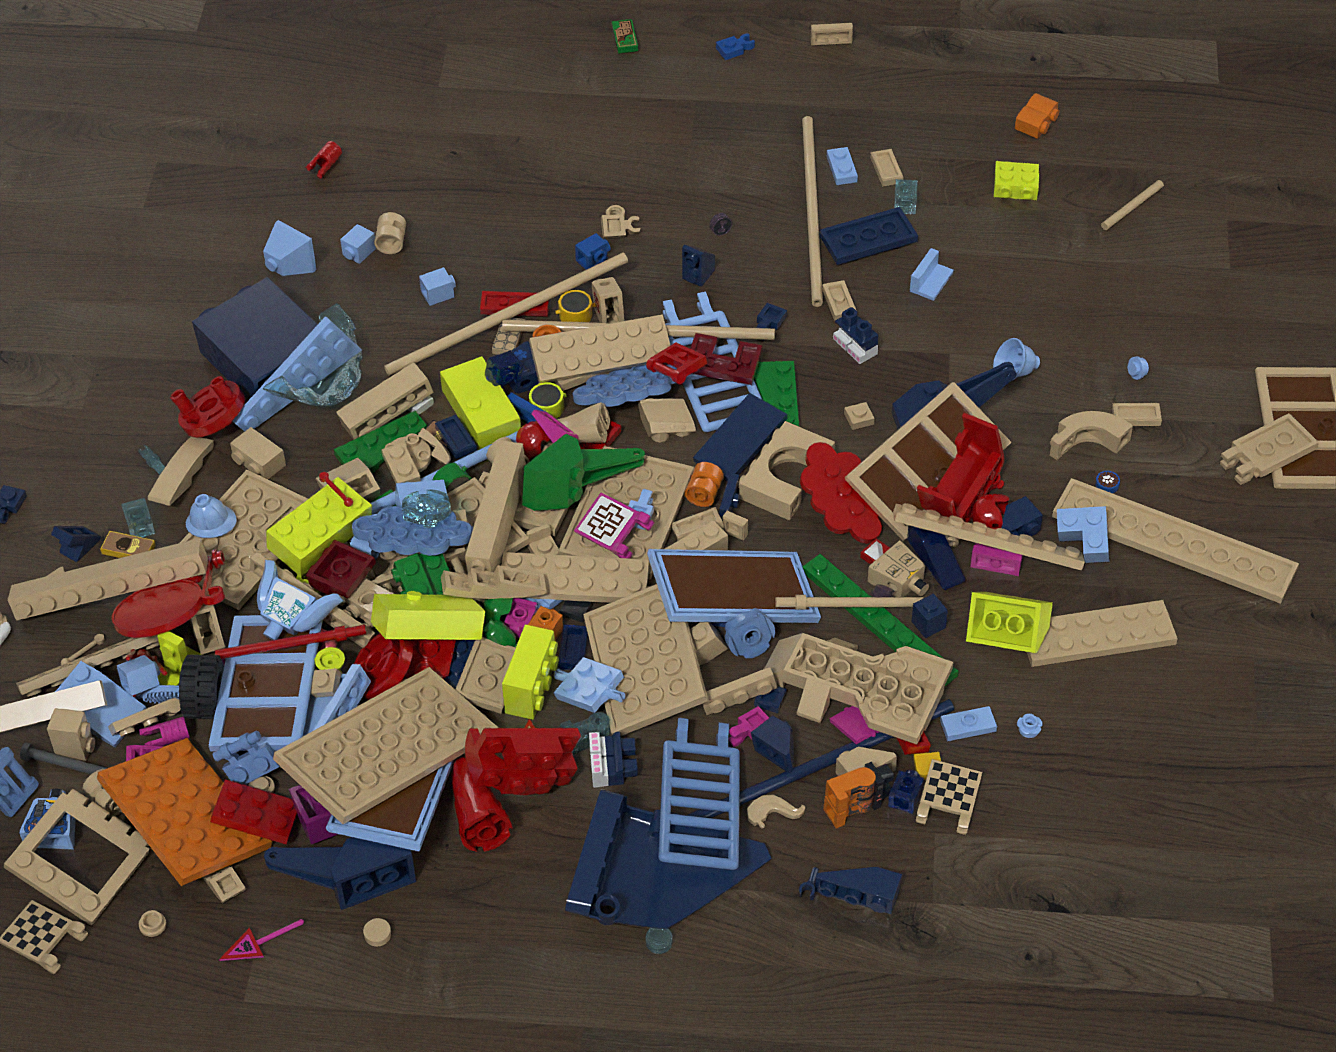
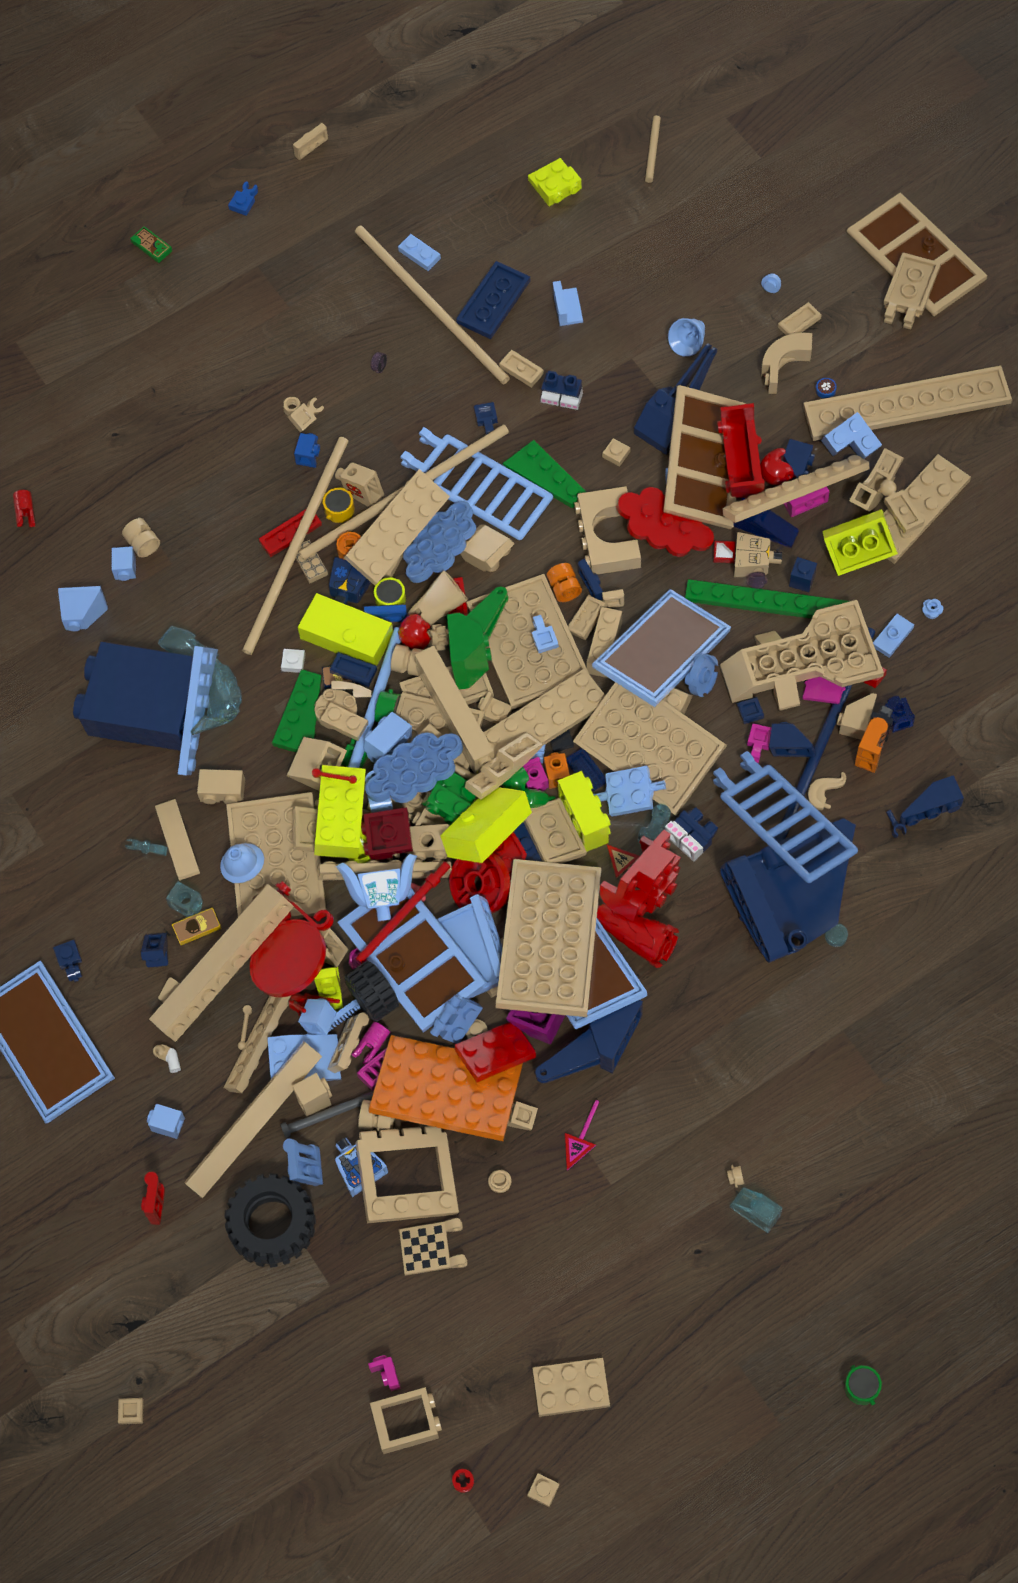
camera: 35 degrees left, 15 degrees up
(210, 407) = (140, 772): red piece -> none
(325, 682) = (455, 923): tan plate -> none
(330, 659) = (441, 905): neon yellow piece -> none
(377, 932) = (653, 1070): tan tile -> none
(385, 401) = (277, 679): tan brick -> none
(426, 508) = (407, 753): clear light blue plate -> none
(437, 286) = (219, 557): light blue brick -> none
(503, 368) = (347, 593): clear blue brick -> none
(551, 426) = (432, 615): dark pink slope -> none
(609, 524) = (534, 660): flag -> none
(679, 356) = (463, 494): red plate -> none
(697, 265) = (396, 409): dark blue slope -> none
(737, 369) = (479, 486): dark red plate -> none
(739, 691) = (734, 721): tan plate -> none
(741, 435) = (553, 527): dark blue tile -> none
(800, 602) = (717, 625): tan bar -> none
(886, 167) = (452, 232): tan tile -> none
(906, 195) = (491, 248): clear light blue brick -> none
(923, 761) = (894, 684): yellow tile -> none
(950, 790) = (925, 693): tan flag -> none
(1037, 116) = (524, 116): orange brick -> none
(1074, 588) = (868, 493): none -> tan arch
(1077, 616) = (901, 507): none -> tan plate

